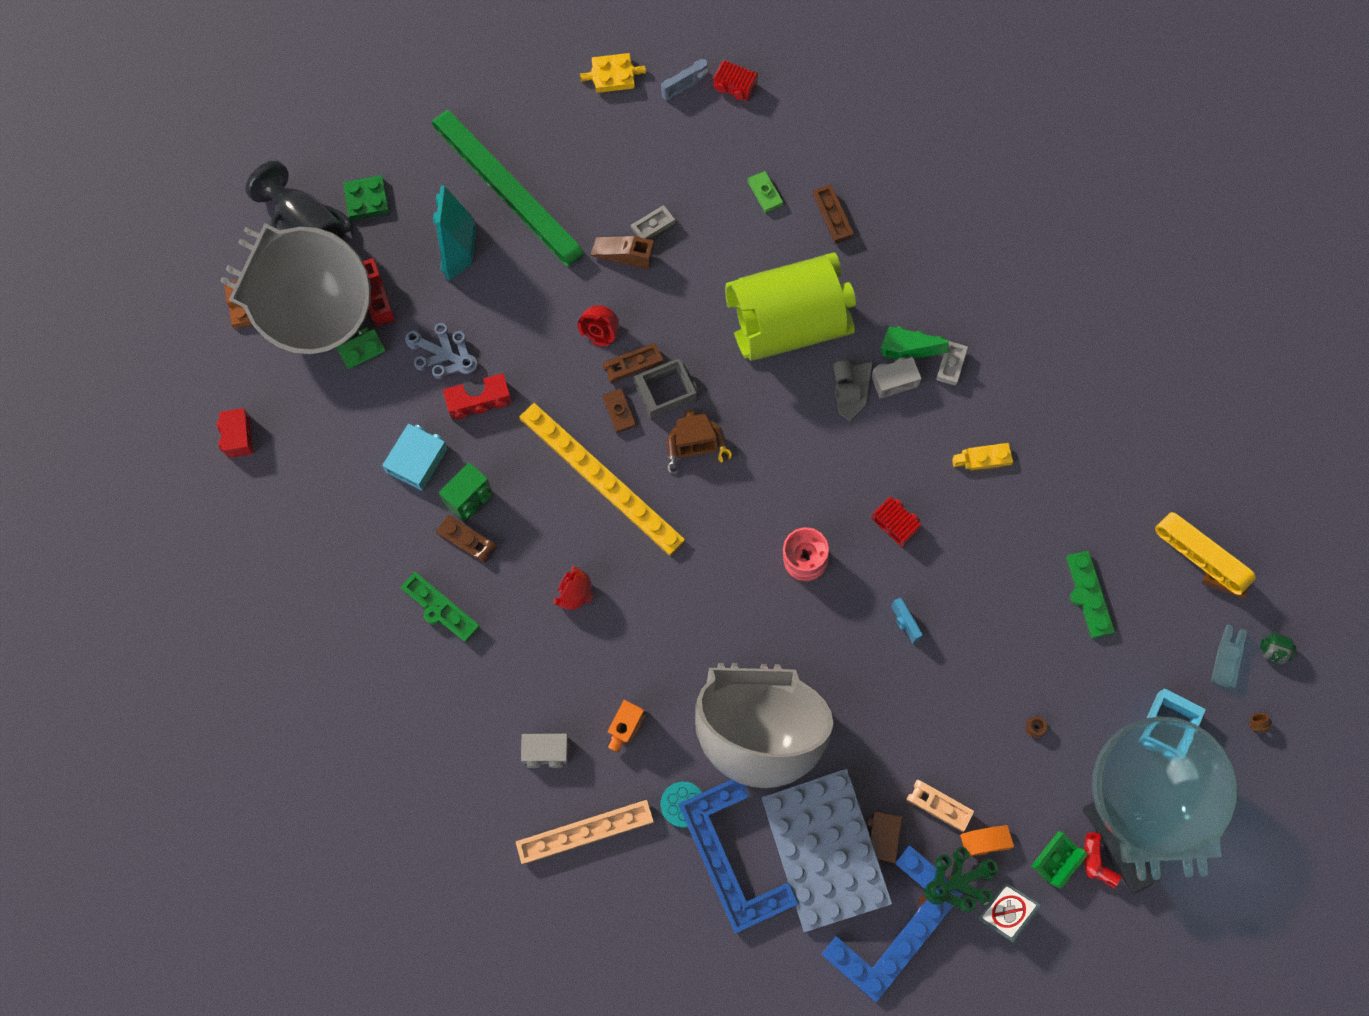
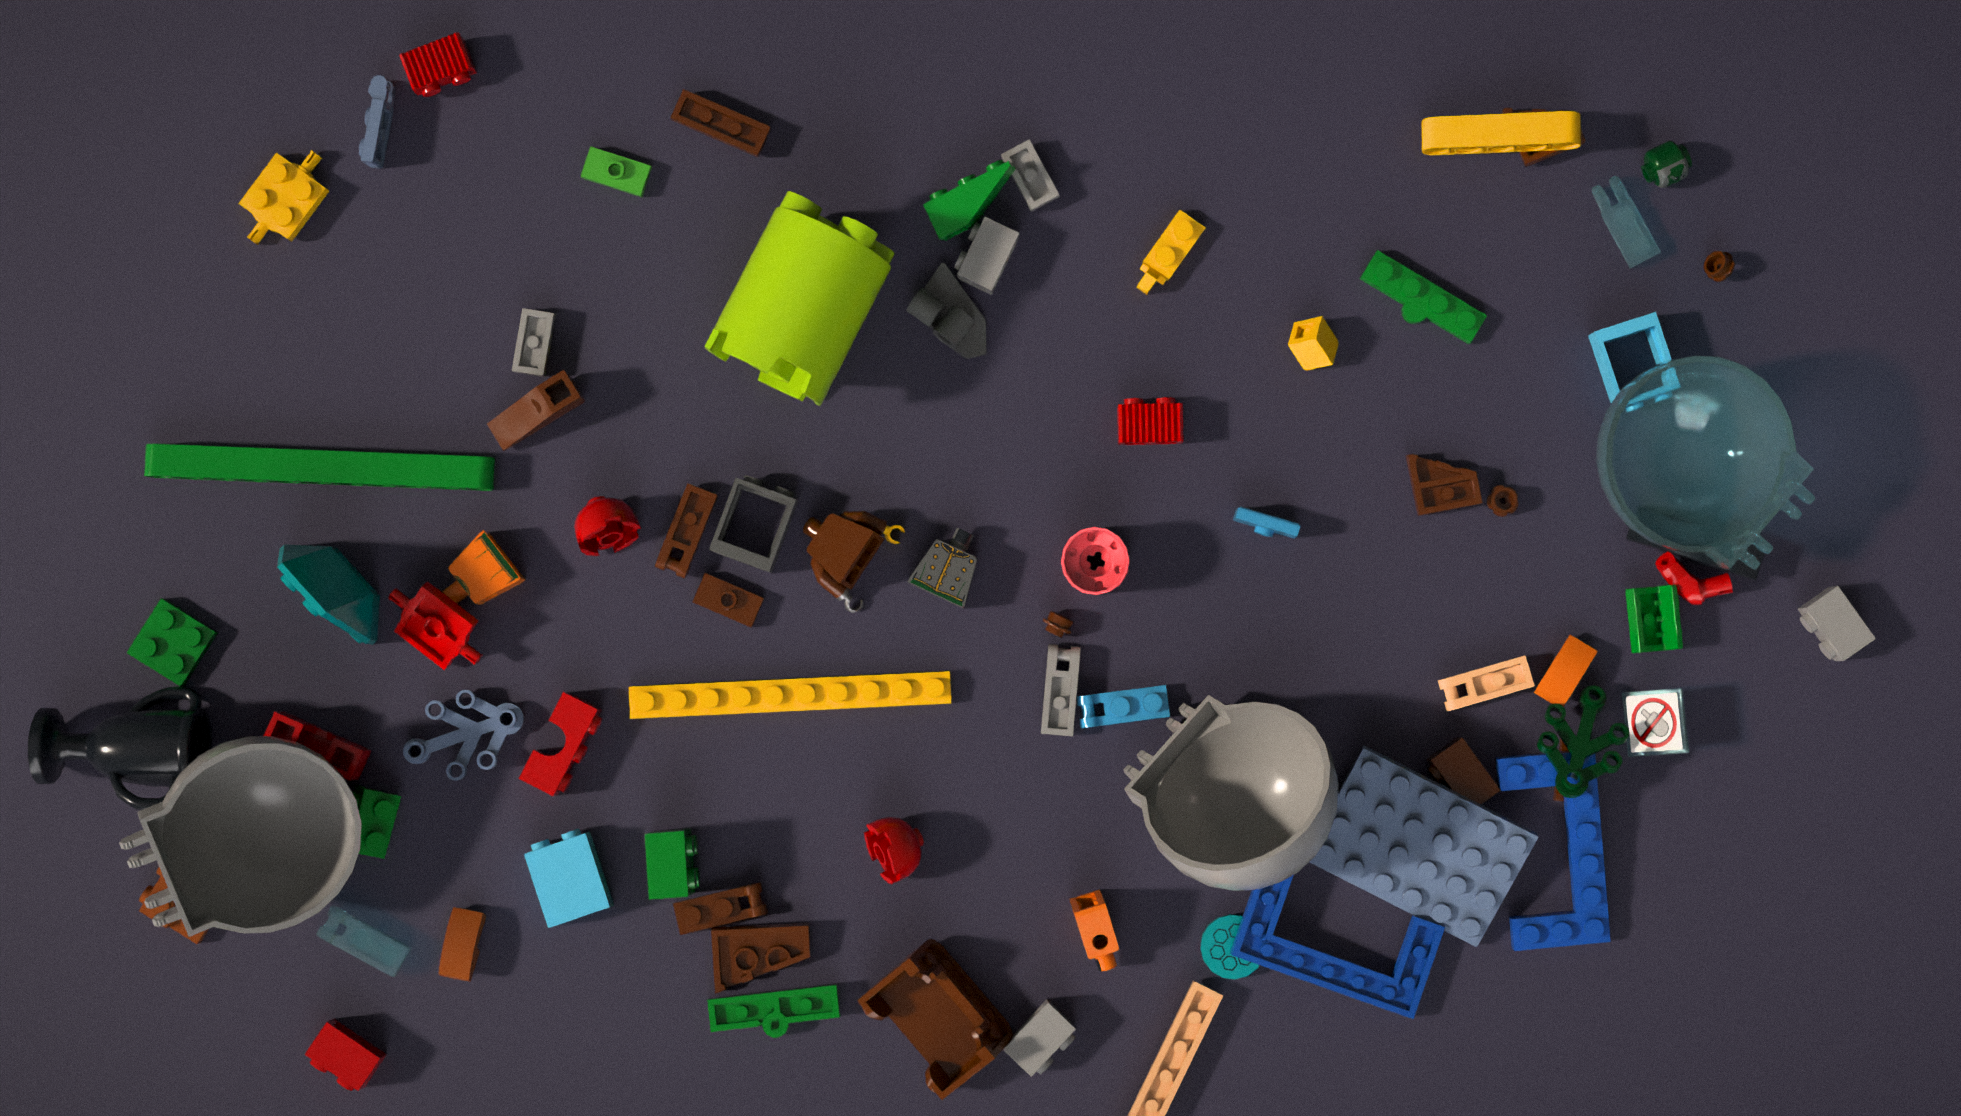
camera: 45 degrees left, 15 degrees up
(299, 395) = (364, 942): none -> clear light blue plate
(337, 436) = (460, 944): none -> dark orange slope
(461, 573) = (756, 949): none -> reddish brown wing
(480, 294) = (435, 625): none -> red plate
(511, 687) = (940, 1015): none -> reddish brown windscreen
(525, 293) = (482, 571): none -> orange torso
(726, 600) = (1060, 691): none -> light grey plate
(731, 493) = (947, 569): none -> dark grey torso
(749, 638) = (1125, 706): none -> dark azure plate
(757, 568) = (1057, 624): none -> reddish brown plate
(1011, 689) = (1441, 486): none -> reddish brown wing
(1013, 562) = (1313, 343): none -> yellow panel
(1155, 961) = (1835, 624): none -> light grey brick

